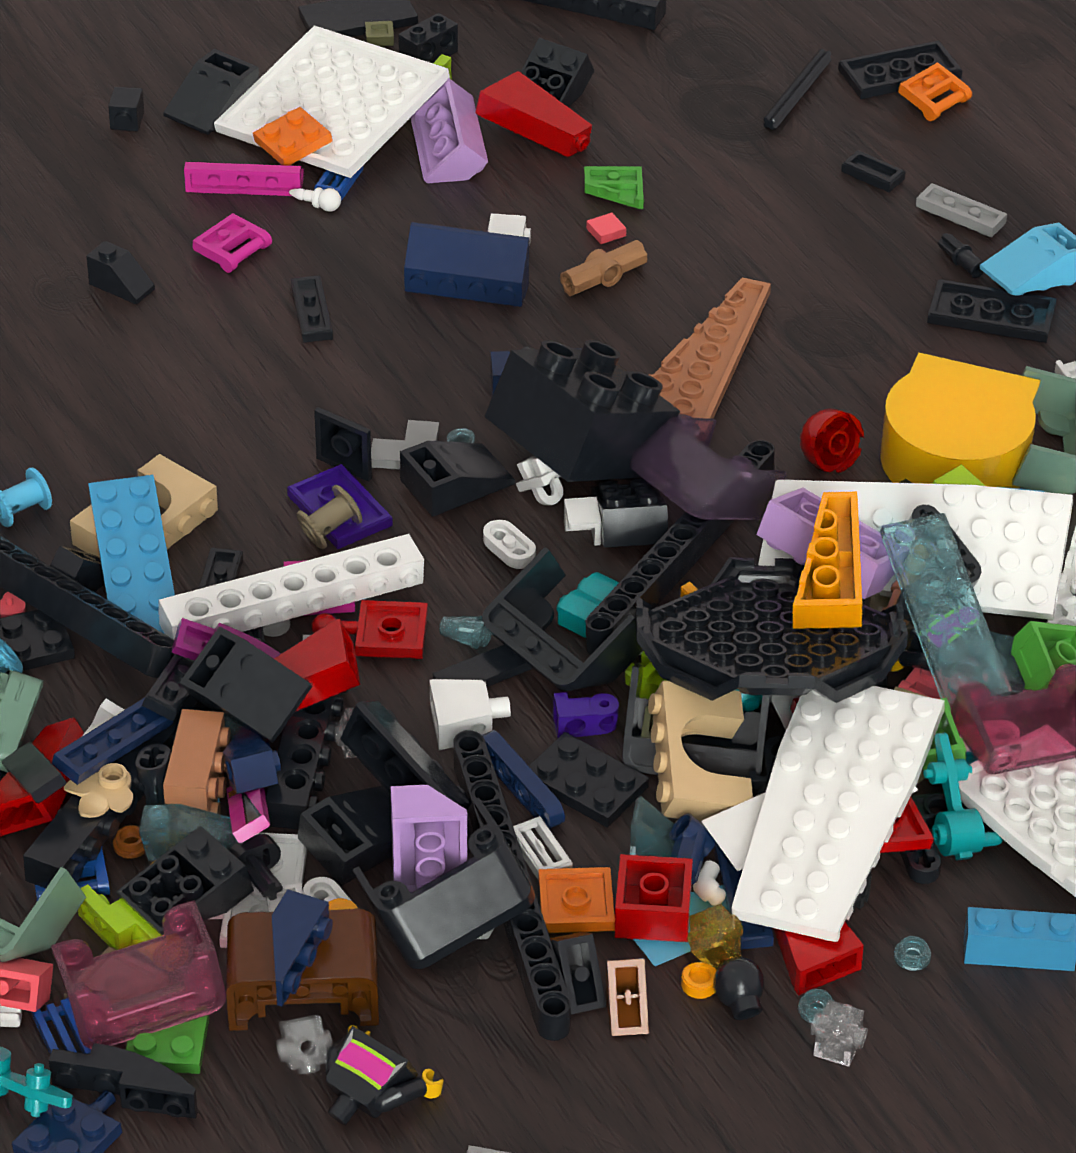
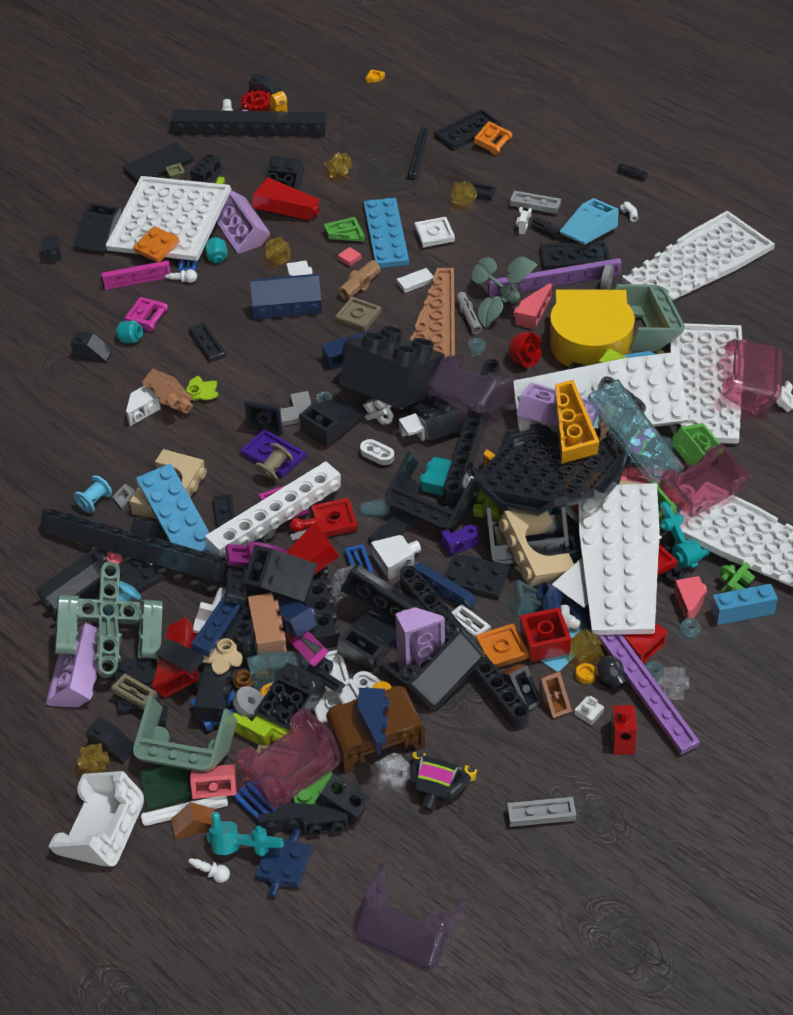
camera: 15 degrees left, 5 degrees up
(67, 510) = (124, 496): none -> light grey slope
(110, 868) = (246, 701): none -> light grey piece
(158, 380) = (141, 404): none -> white slope
(191, 263) = (129, 331): none -> teal head
(195, 1066) = (340, 802): none -> black brick
(208, 366) = (168, 390): none -> nougat hips
(267, 380) = (202, 390): none -> lime plate
(388, 168) = (216, 250): none -> teal head
(404, 686) = (354, 549): none -> blue tile
(488, 191) = (278, 251): none -> clear yellow brick
(579, 320) = (358, 314): none -> dark tan tile
(652, 78) = (339, 164): none -> clear yellow brick
(678, 1039) = (589, 710): none -> white tile
(684, 204) = (386, 233): none -> dark azure plate
(698, 289) = (415, 280): none -> white tile
(724, 1068) = (623, 721): none -> red torso
(755, 416) = (476, 345): none -> clear light blue plate
(764, 352) = (466, 308): none -> light grey pin
(766, 219) = (434, 232): none -> white plate
(792, 1039) = (651, 693): none -> medium lavender plate
(841, 168) = (463, 193): none -> clear yellow brick
(860, 305) = (518, 270): none -> sand green plant
(871, 379) = (532, 308): none -> coral slope
(925, 235) = (522, 221): none -> white plate
(936, 901) = (690, 595): none -> coral slope
(937, 337) = (557, 277): none -> medium lavender plate
(1022, 892) = (743, 575): none -> bright green hips
(1027, 353) = (607, 277): none -> light grey piece

